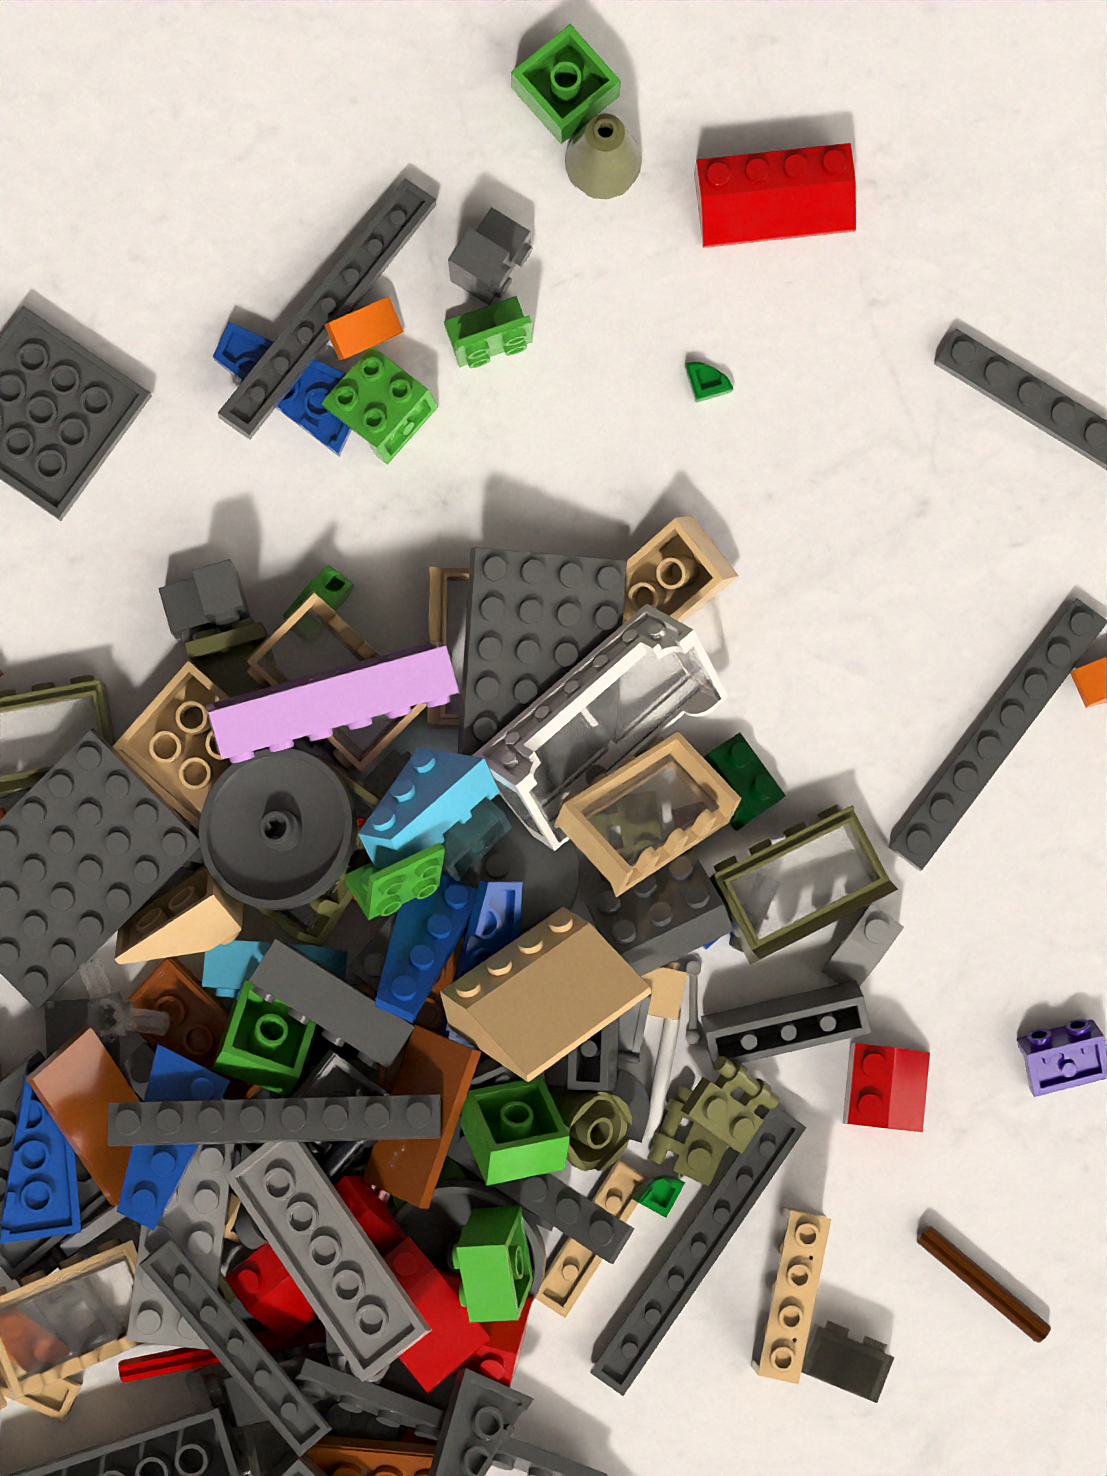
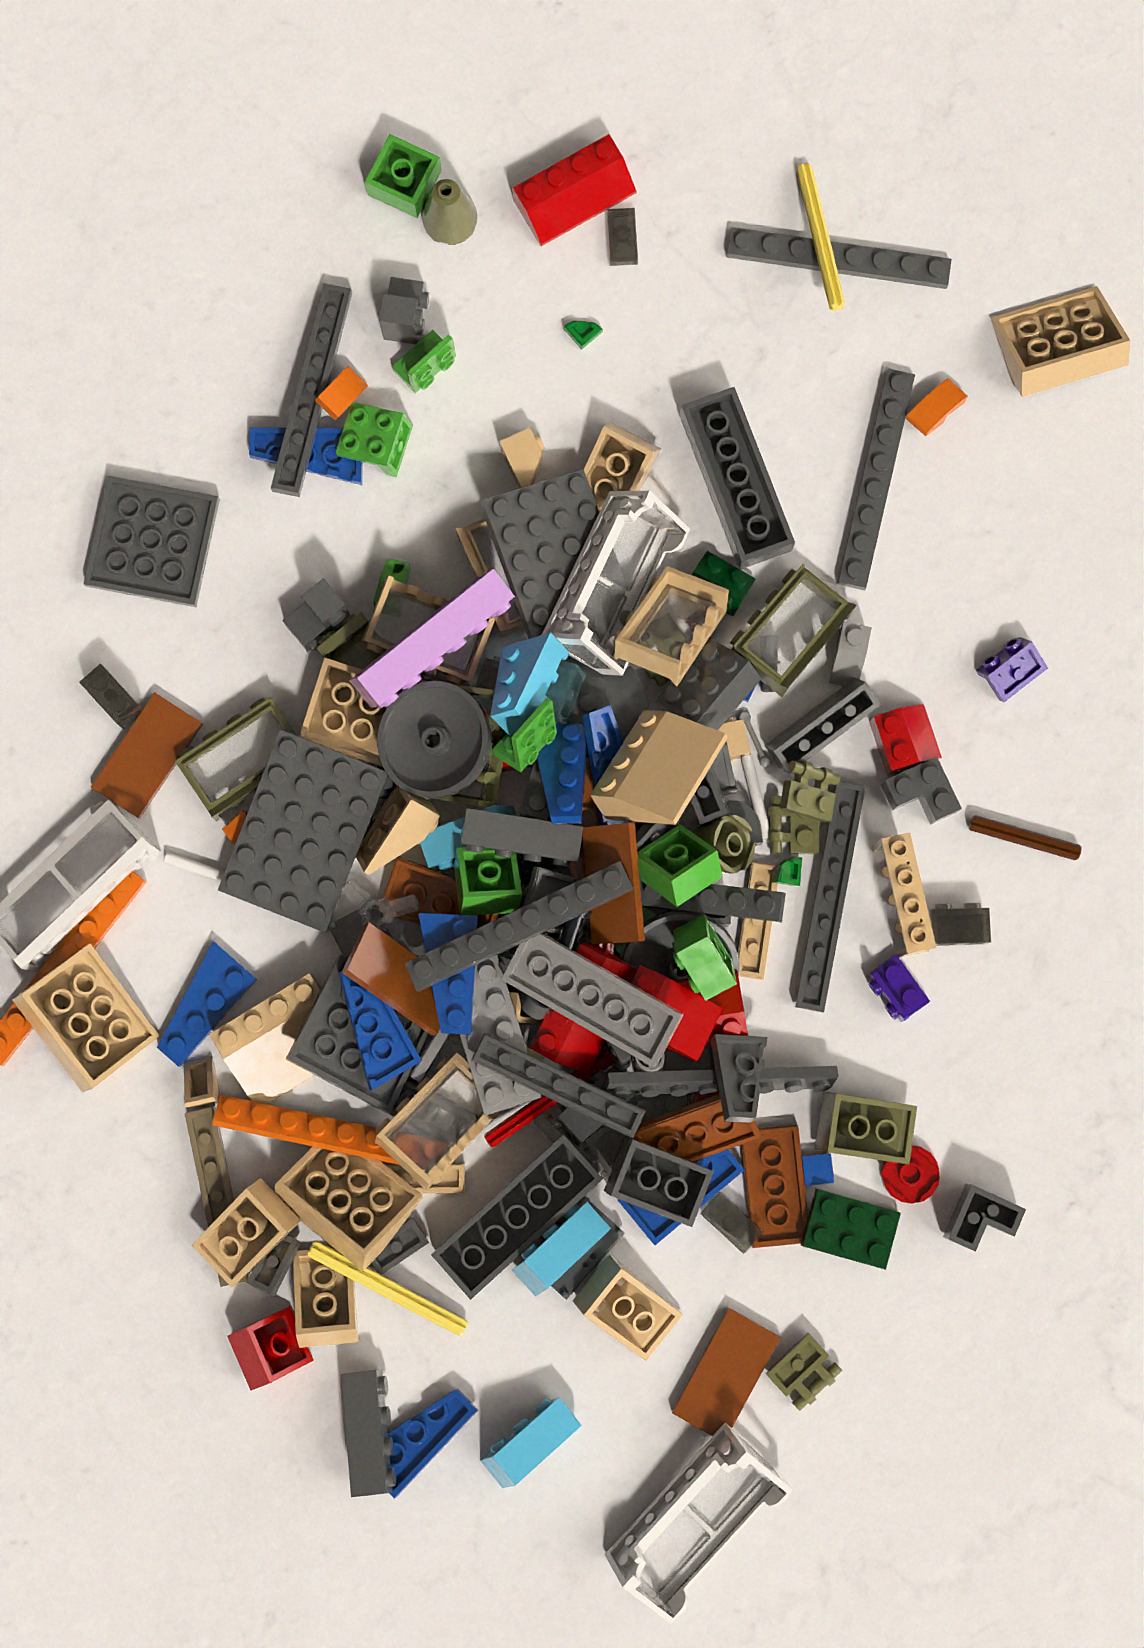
camera: 20 degrees left, 0 degrees up
(559, 510) = (523, 456): none -> tan slope
(732, 1406) = (897, 988): none -> dark purple bracket
(811, 280) = (622, 236): none -> clear smoke plate
(818, 657) = (737, 478): none -> dark grey brick
(887, 1159) = (928, 785): none -> dark grey brick
(1064, 392) = (820, 237): none -> light yellow axle

